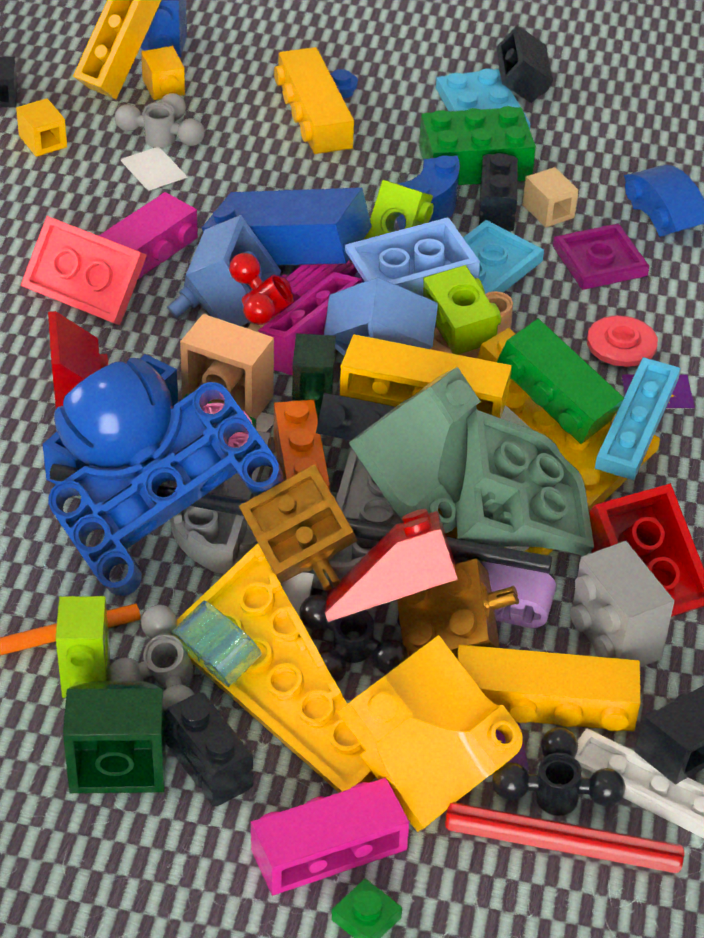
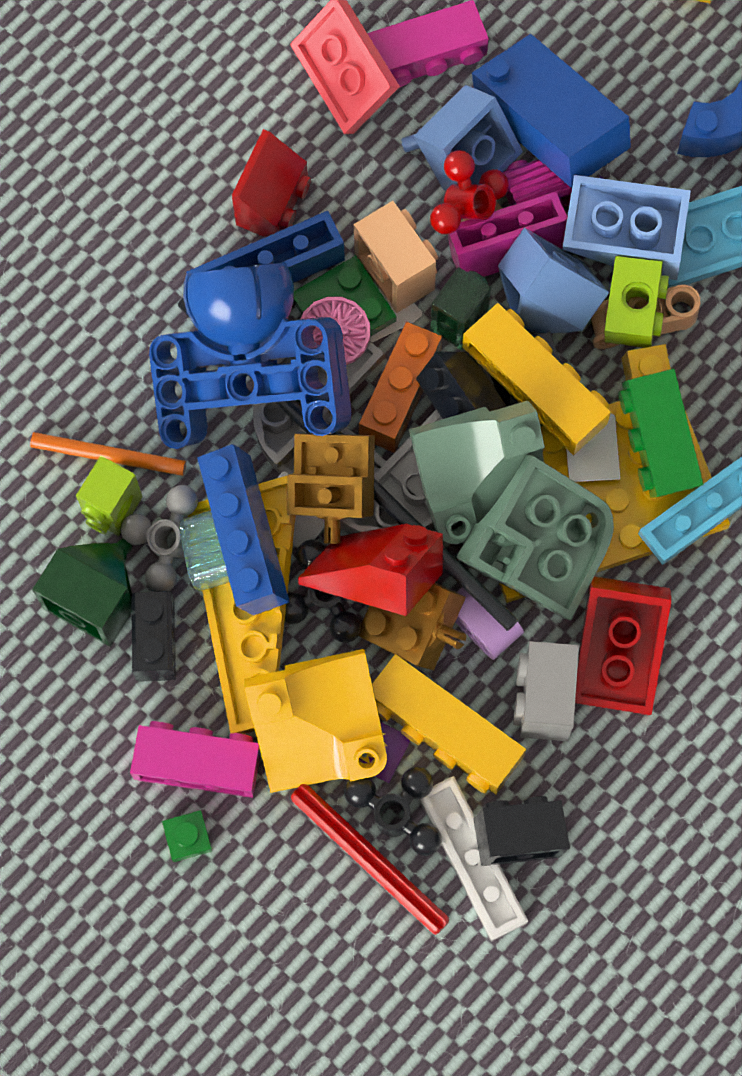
camera: 35 degrees right, 30 degrees up
(263, 613) = (243, 530): none -> blue brick
(398, 200) = (662, 150): lime brick -> none

